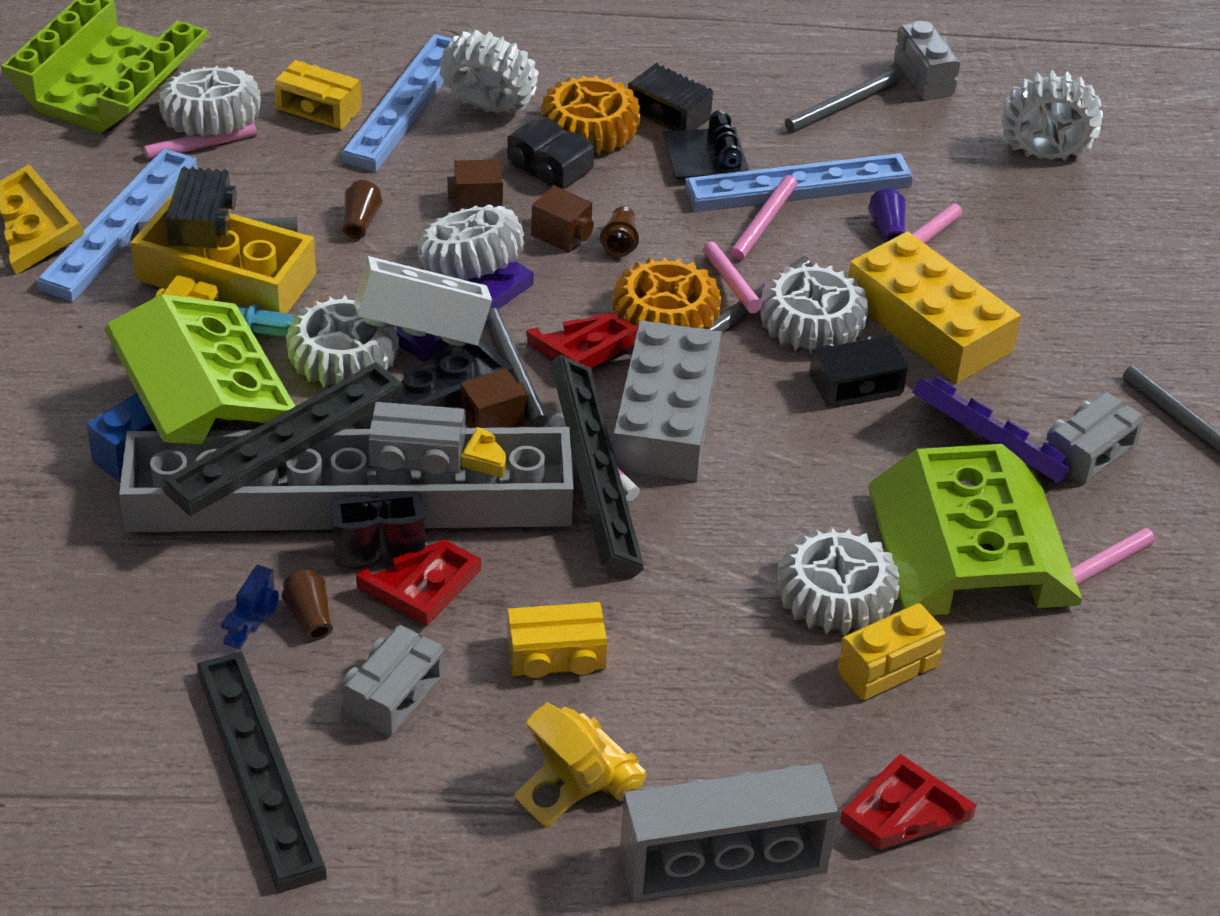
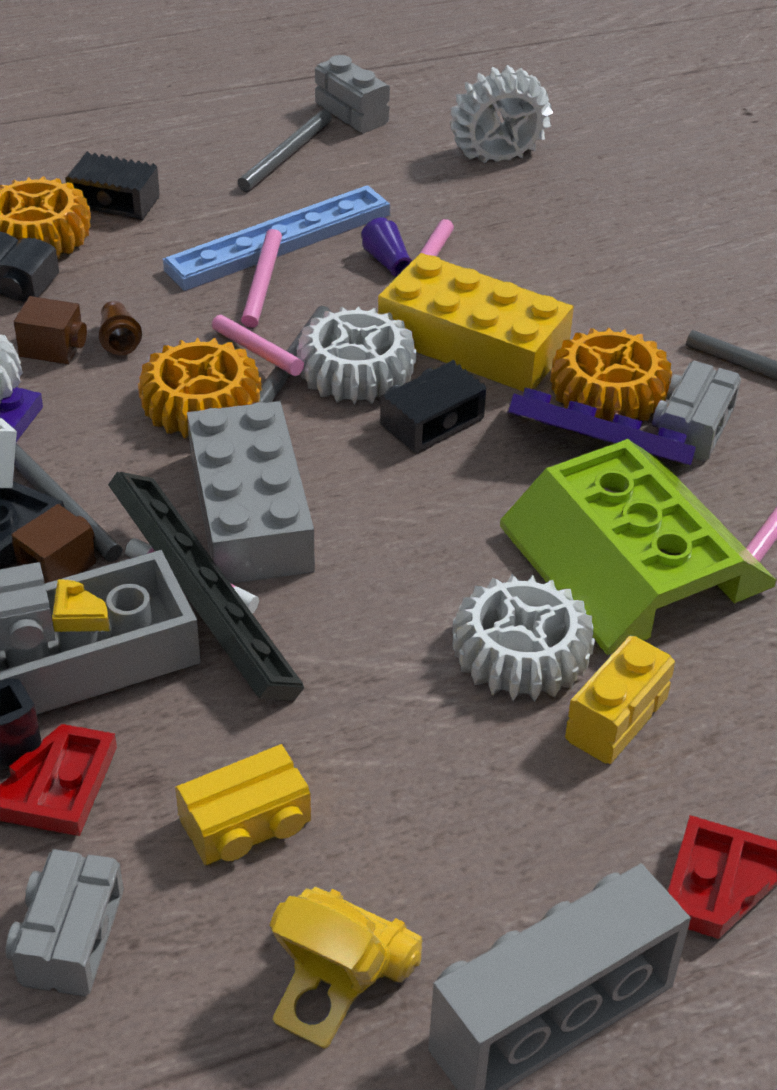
camera: 20 degrees left, 0 degrees up
(586, 340) = (133, 449): red wing -> none
(706, 150) = (171, 227): black hinge -> none
(1030, 385) = (611, 374): none -> light orange gear

